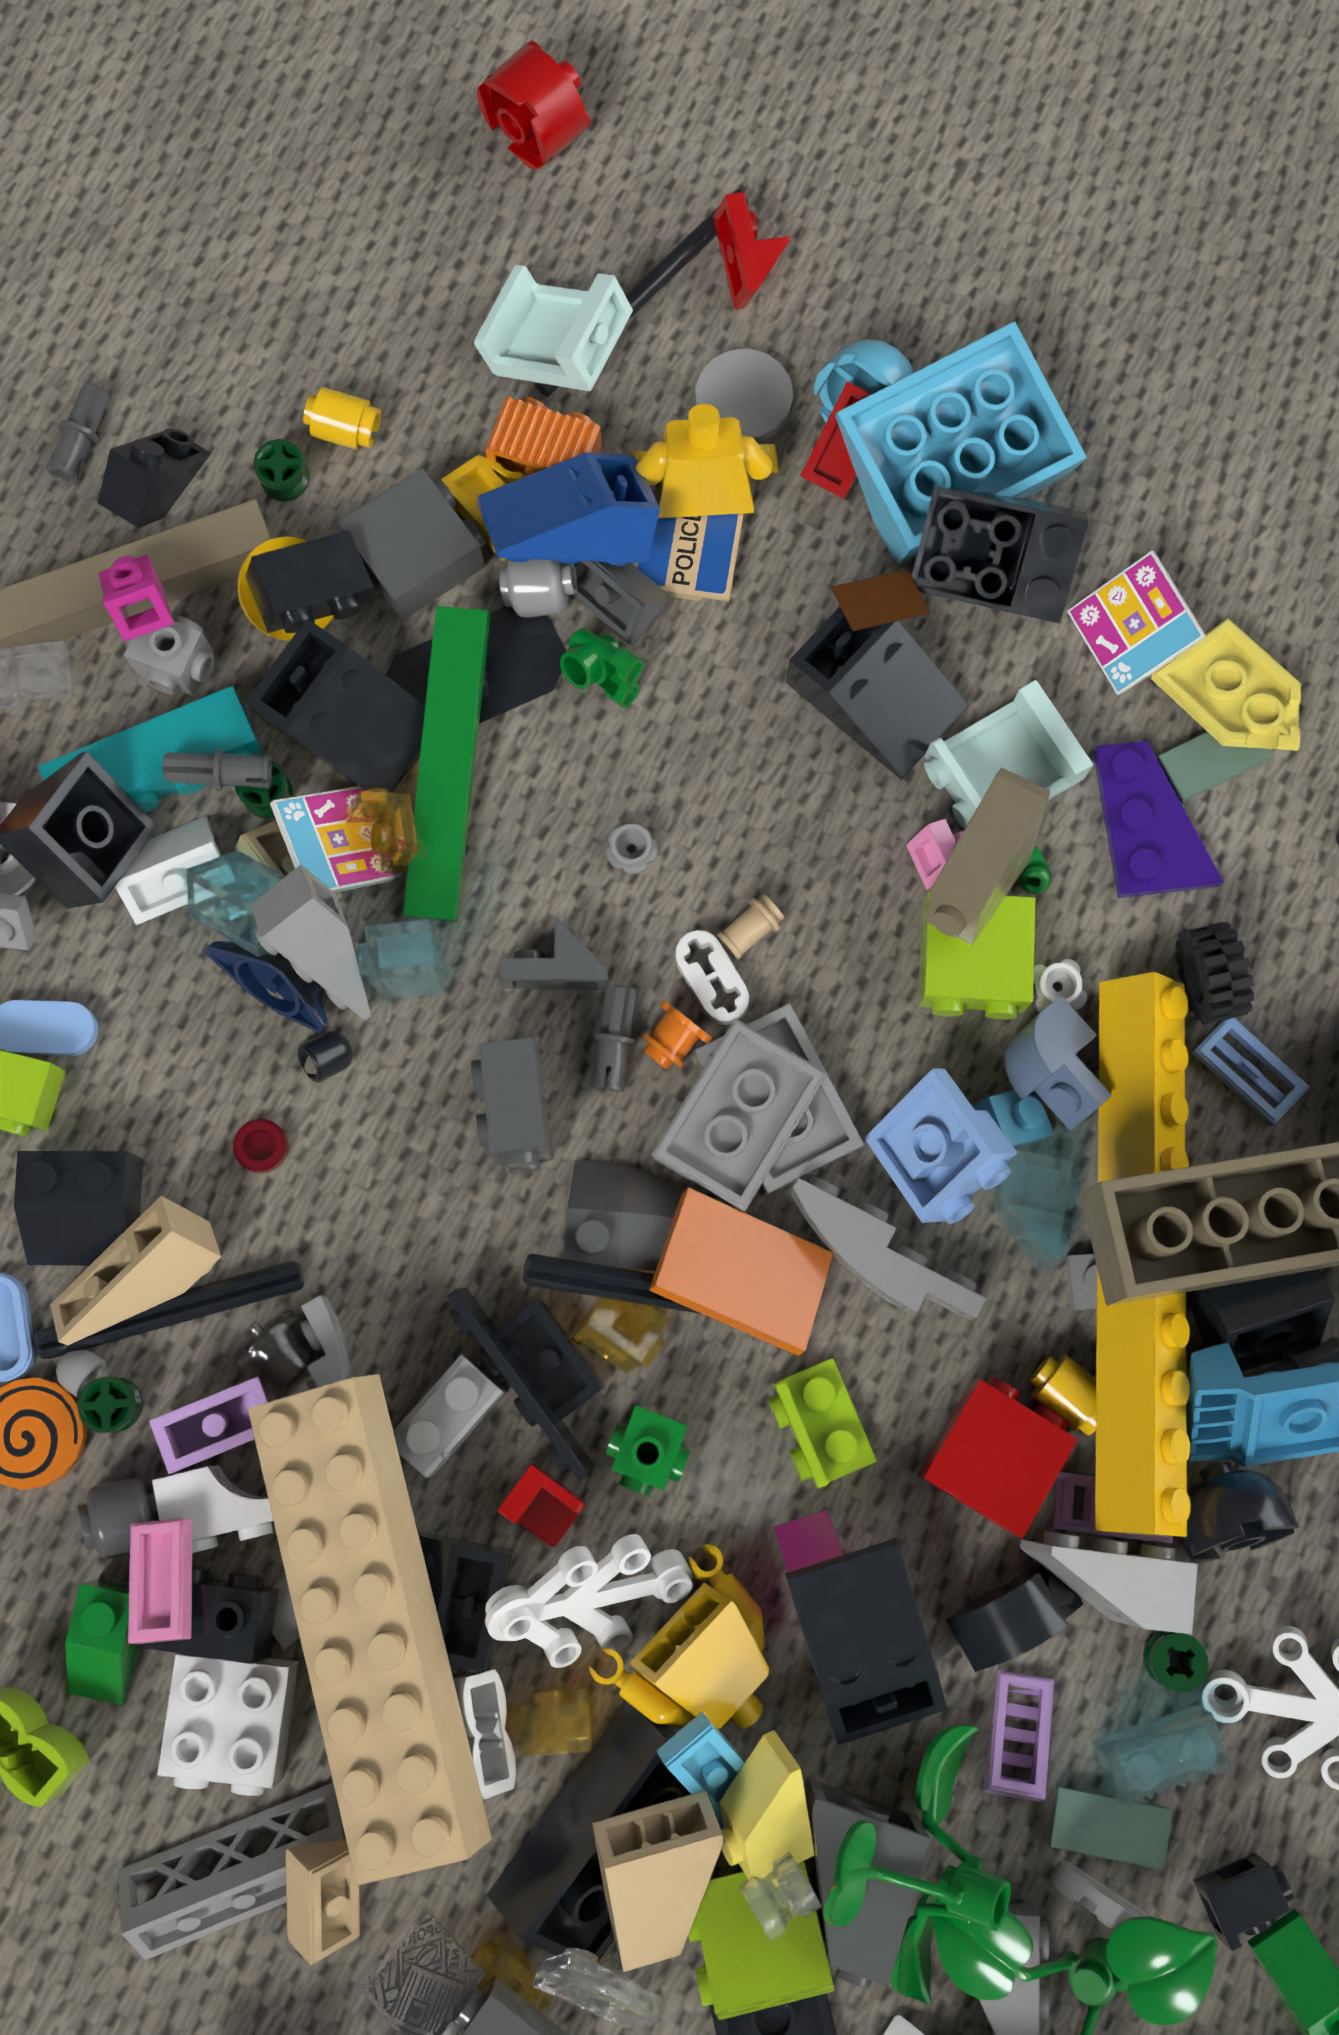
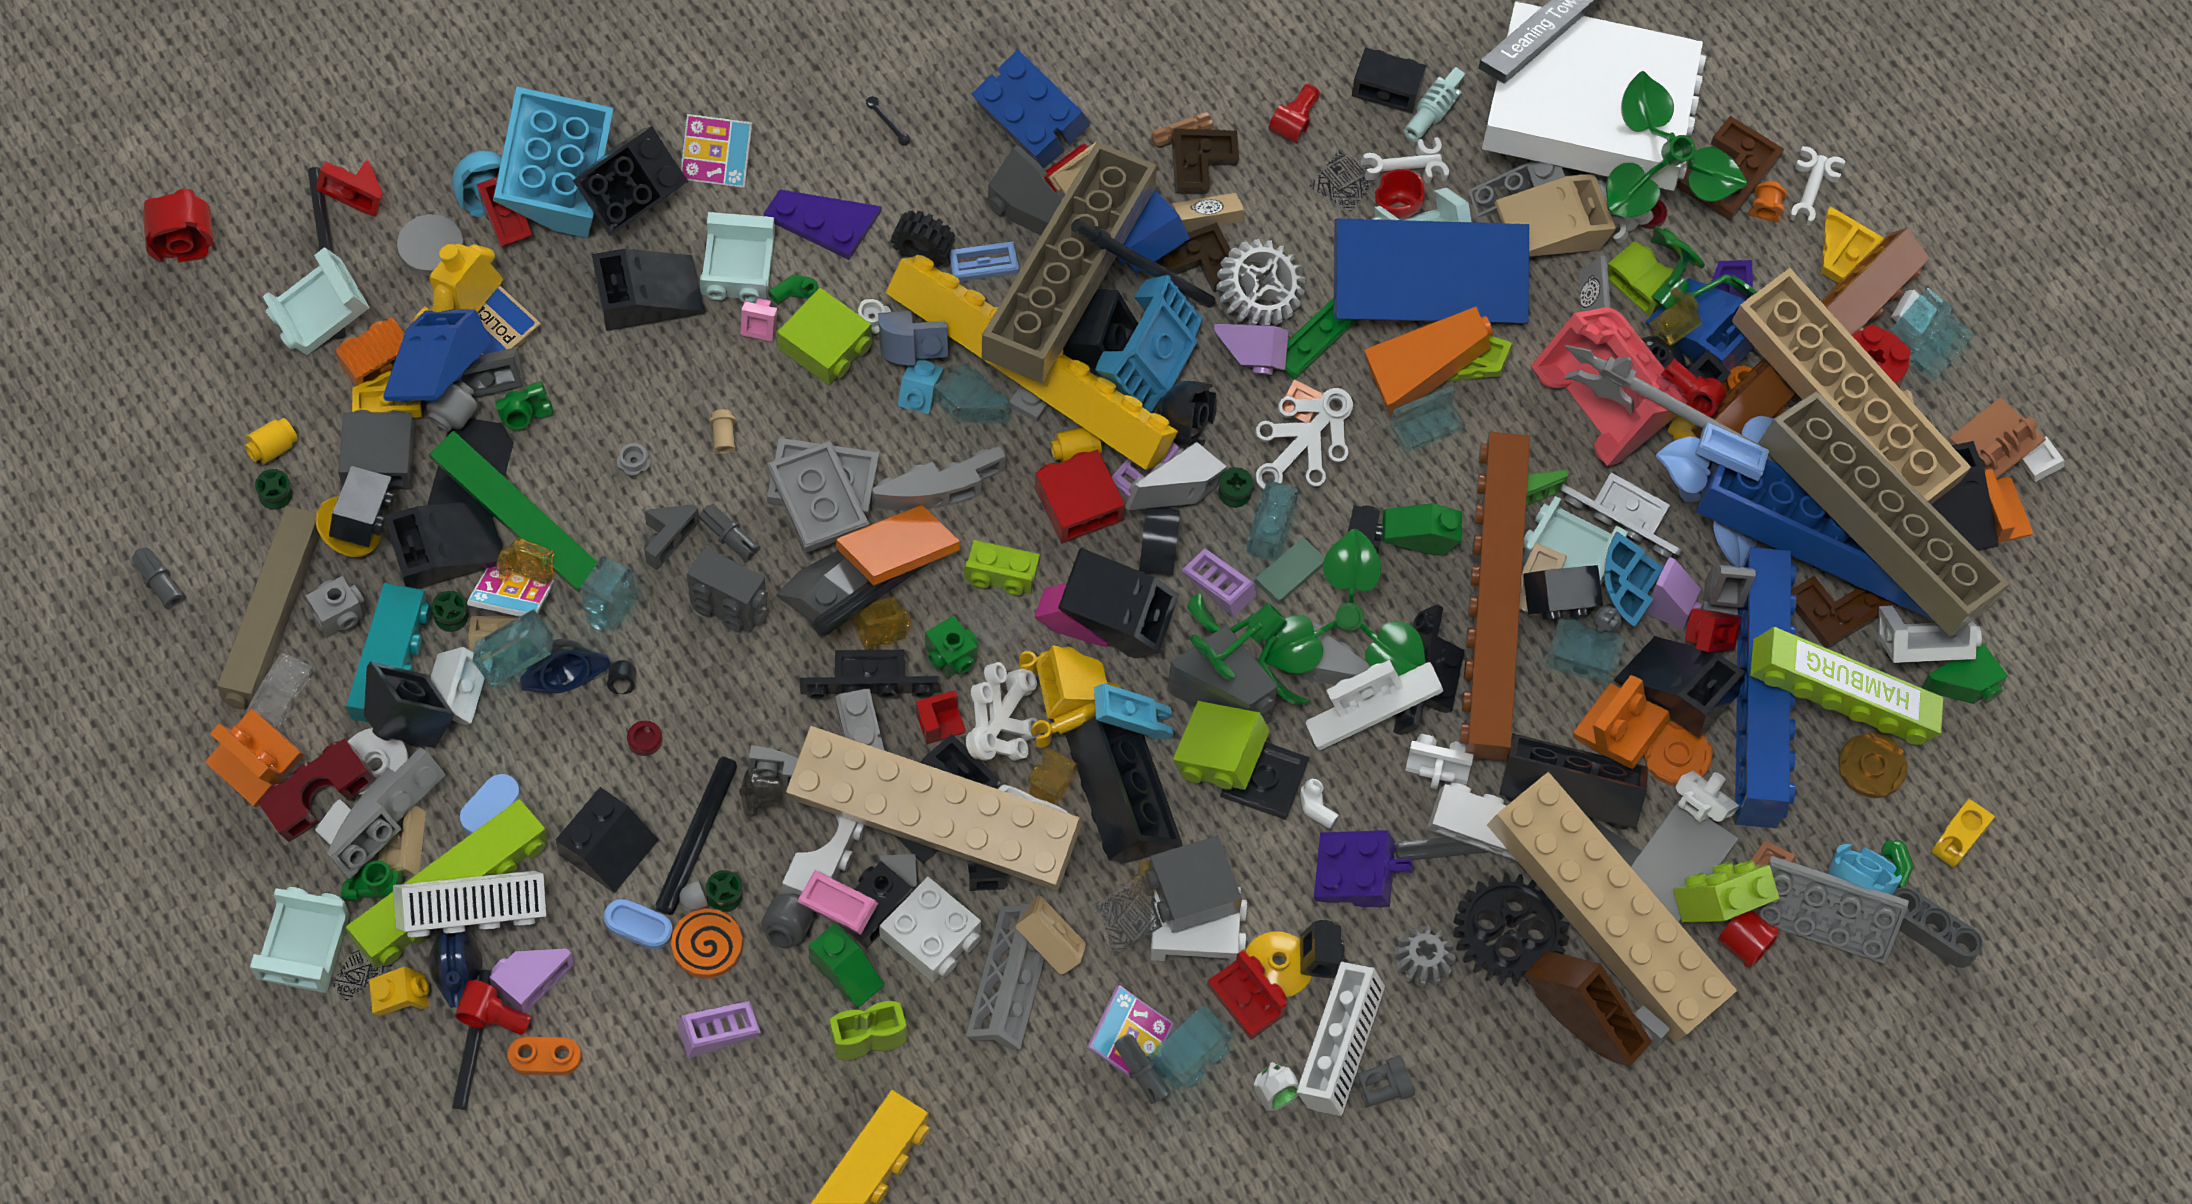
camera: 60 degrees left, 15 degrees down
(131, 582) = (291, 586): dark pink brick -> none
(139, 1270) = (666, 826): tan slope -> none
(150, 475) = (220, 553): black slope -> none
(207, 1425) = (776, 839): lavender slope -> none
(218, 769) = (428, 615): dark grey axle -> none
(309, 929) = (568, 613): light grey slope -> none
(601, 1988) = (1190, 829): clear plate -> none
(657, 1874) = (1155, 765): tan slope -> none
(673, 1037) = (751, 502): orange brick -> none
(722, 970) = (734, 467): white beam -> none
(766, 1810) = (1163, 696): light yellow slope -> none
(780, 1896) = (1204, 708): clear wheel -> none
(880, 600) = (607, 248): reddish brown sticker -> none
(940, 1149) = (909, 416): light blue plate -> none
(987, 856) = (784, 286): dark tan slope -> none
(1096, 1896) = (1310, 589): light grey tile -> none
(1207, 764) = (814, 165): sand green tile -> none
(1235, 691) = (789, 132): light yellow tile -> none

